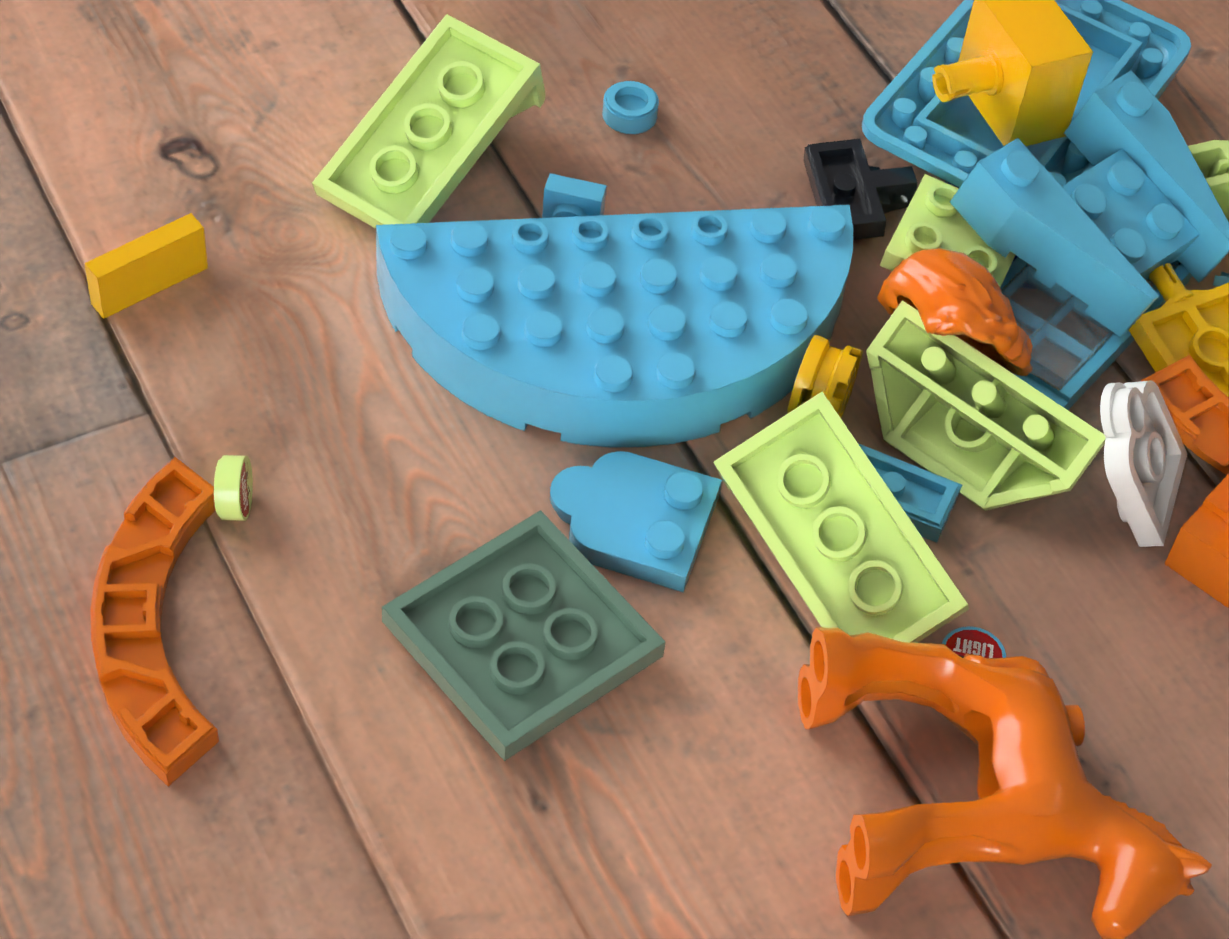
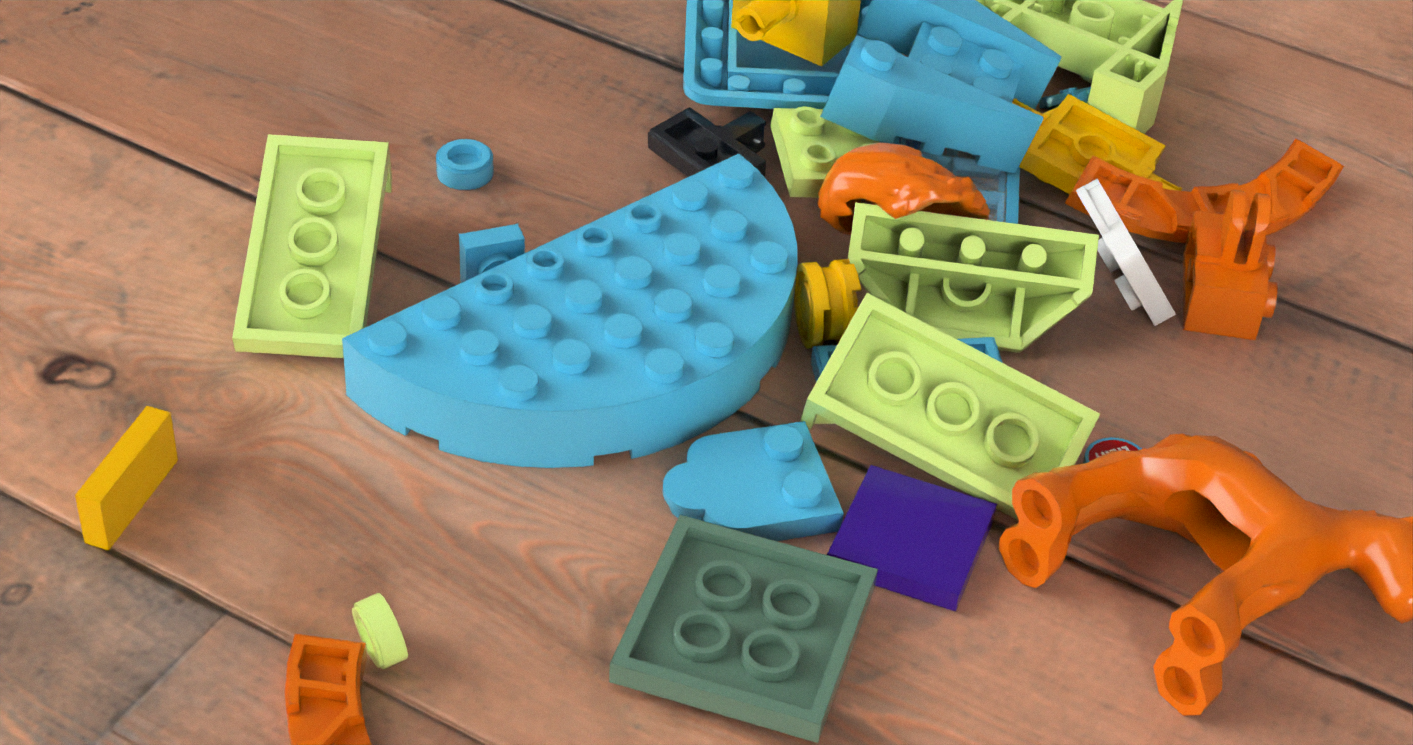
camera: 30 degrees left, 10 degrees down
(731, 629) = (914, 535): none -> dark purple tile

